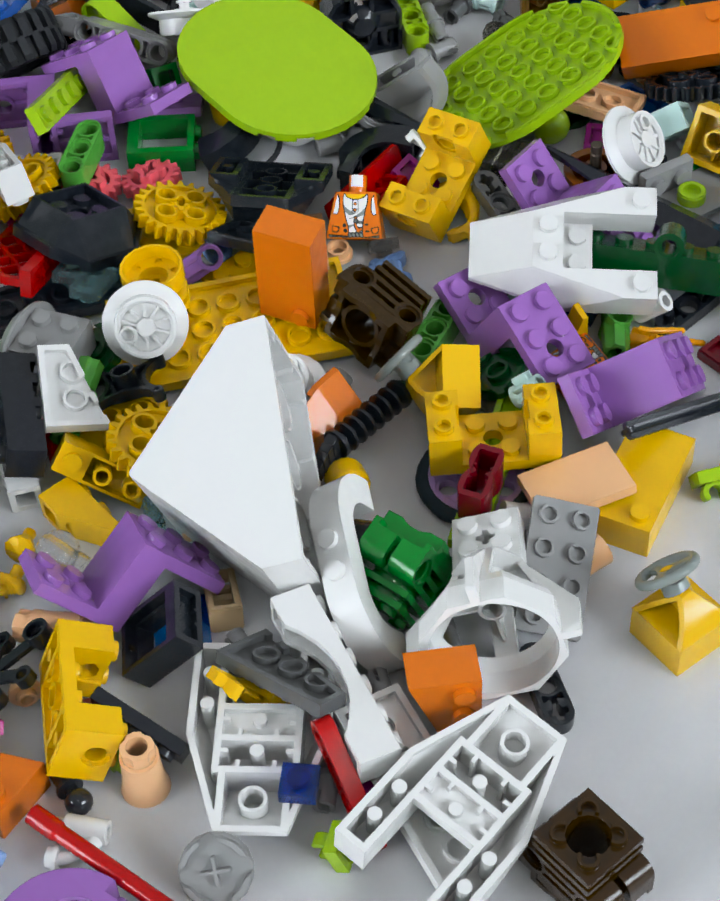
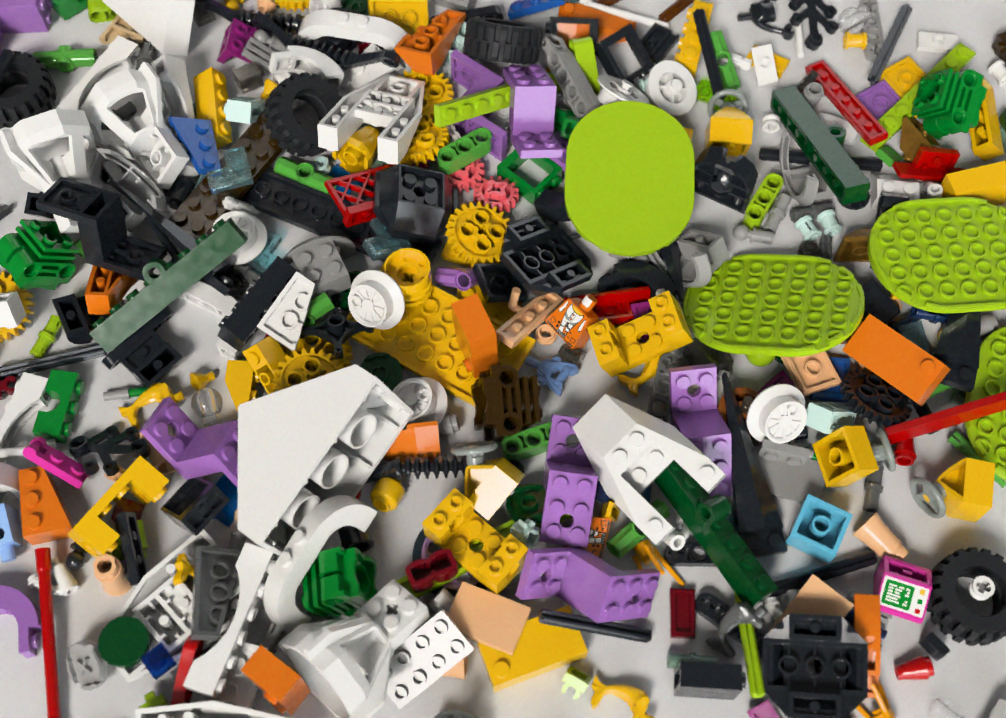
camera: 40 degrees right, 15 degrees up
(240, 799) = (124, 642): none -> dark green tile
(474, 16) = (807, 228): none -> light aqua bush
(691, 194) = (789, 477): lime tile -> none

